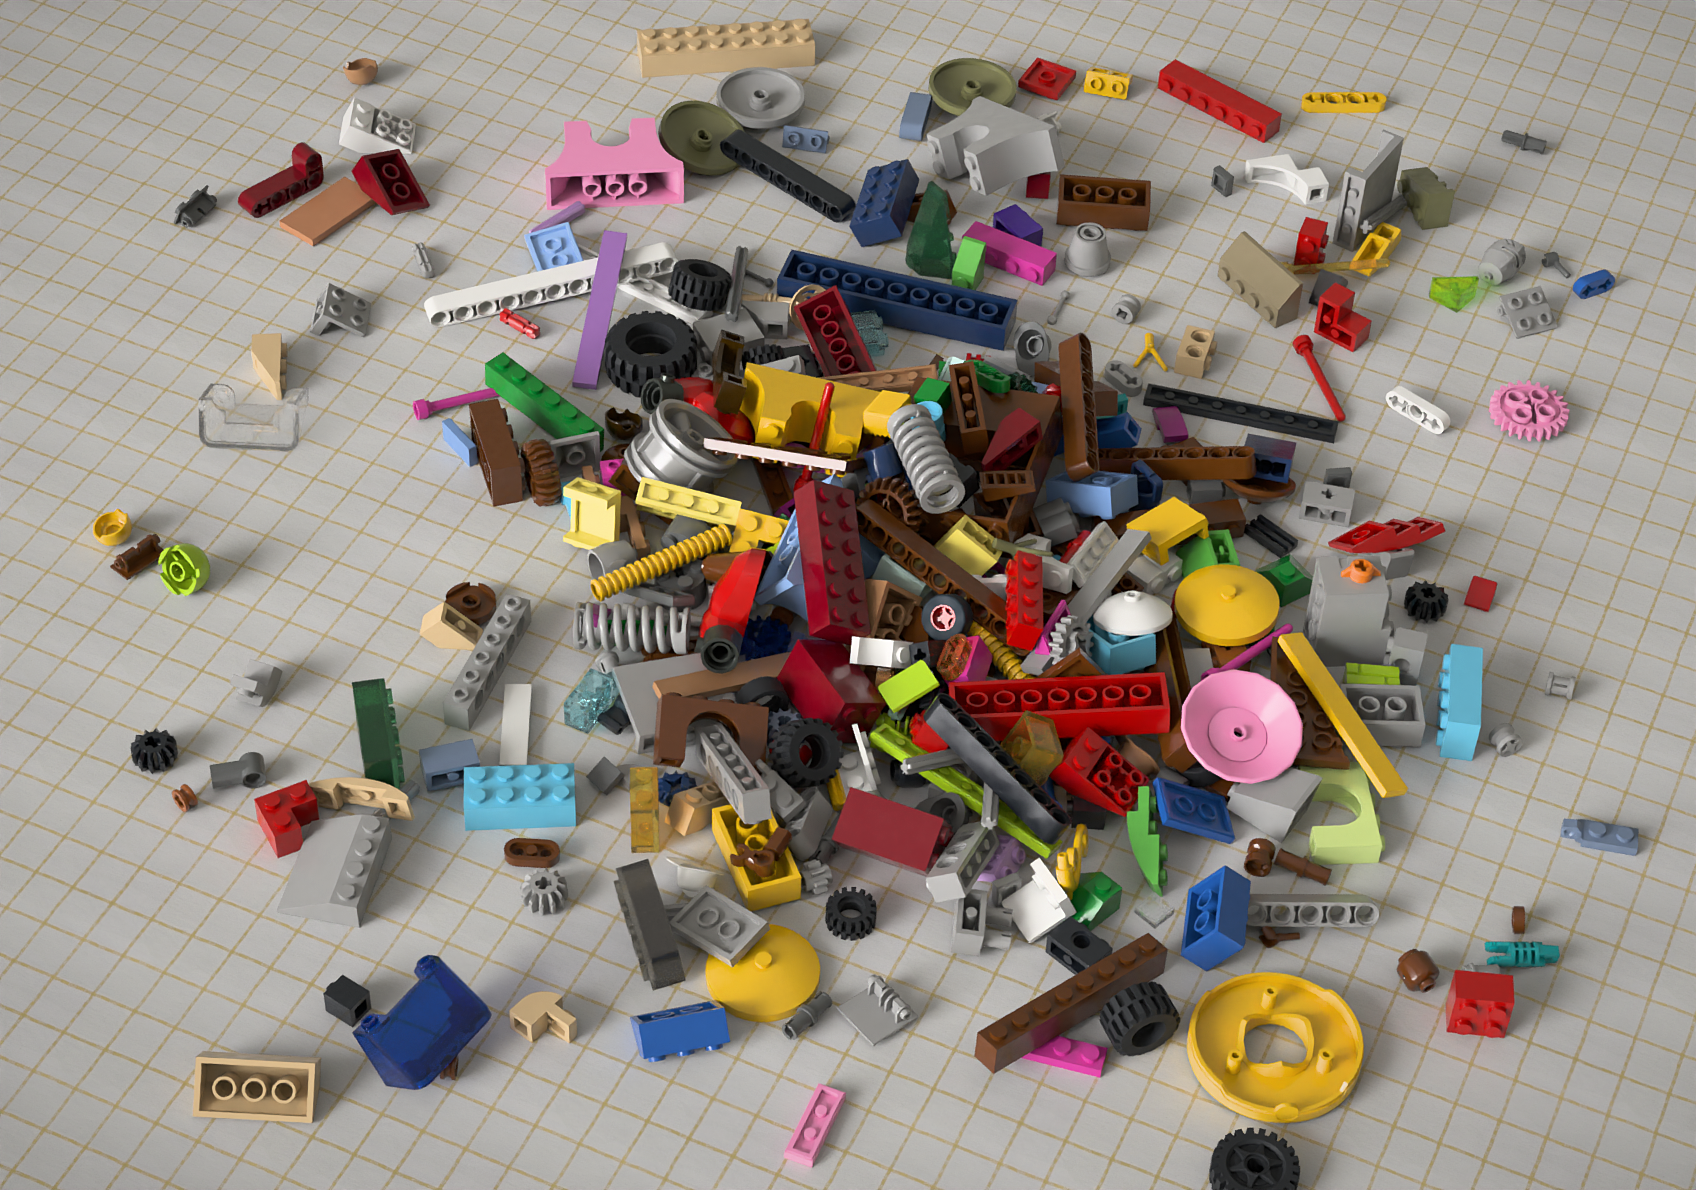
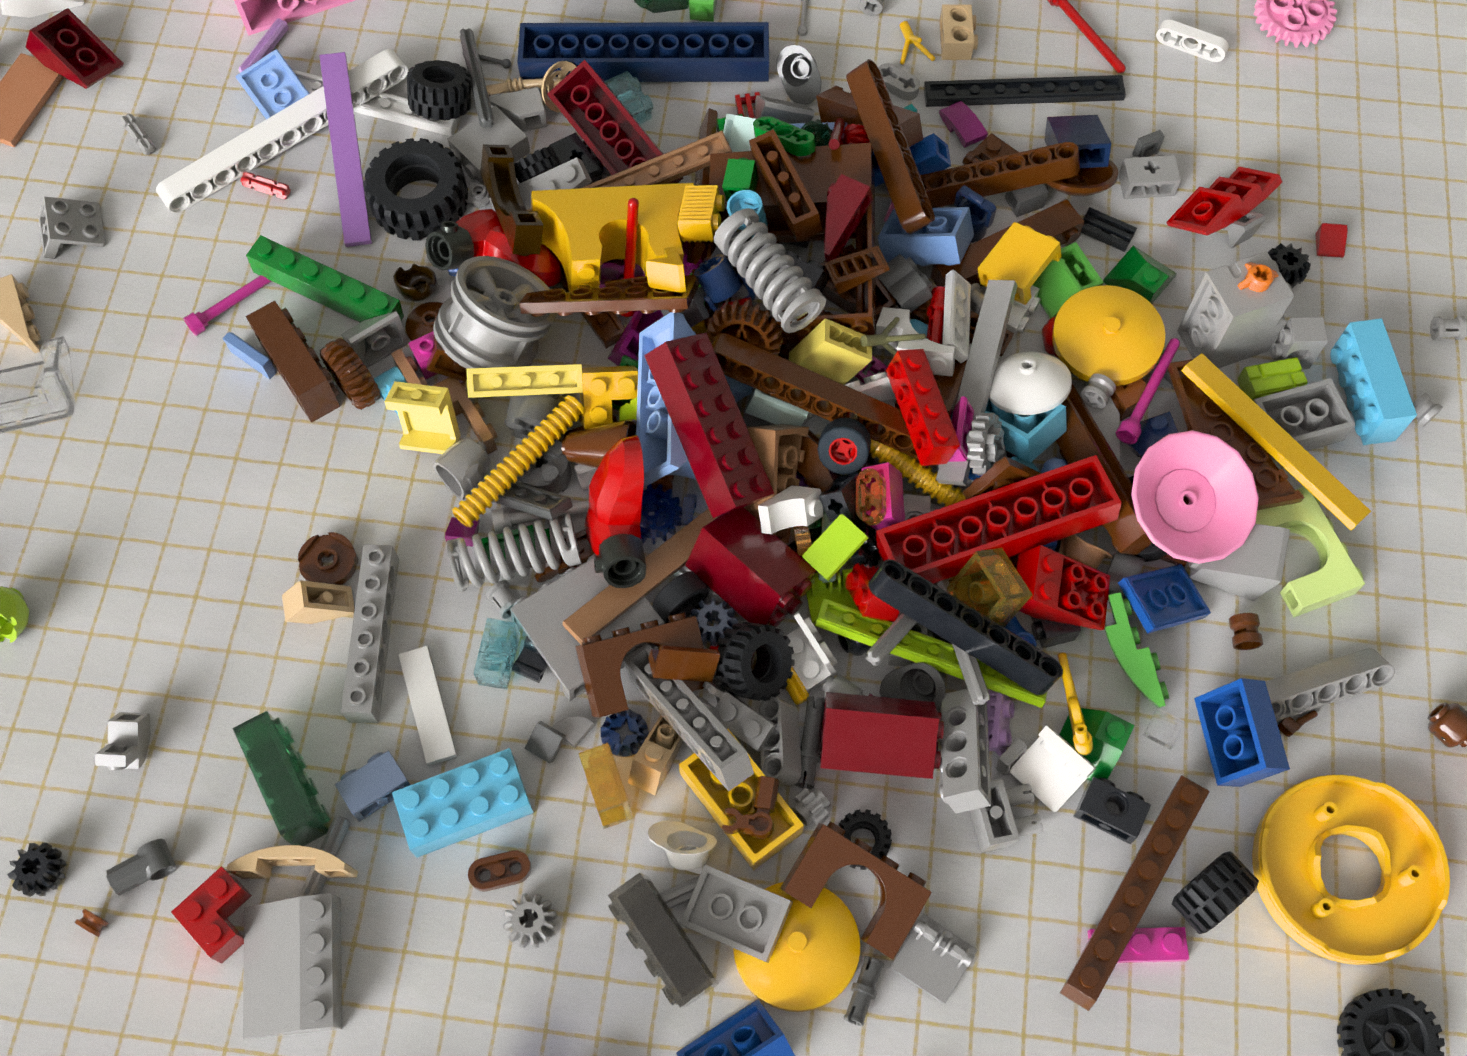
camera: 15 degrees left, 20 degrees up
(745, 730) = (684, 663): none -> reddish brown panel
(815, 899) = (900, 897): none -> reddish brown arch
(837, 442) = (666, 272): none -> yellow slope
(1034, 386) = (837, 132): none -> dark red bar
(1197, 641) = (1098, 391): none -> light grey wheel
(1303, 866) = (1290, 628): reddish brown pin -> none

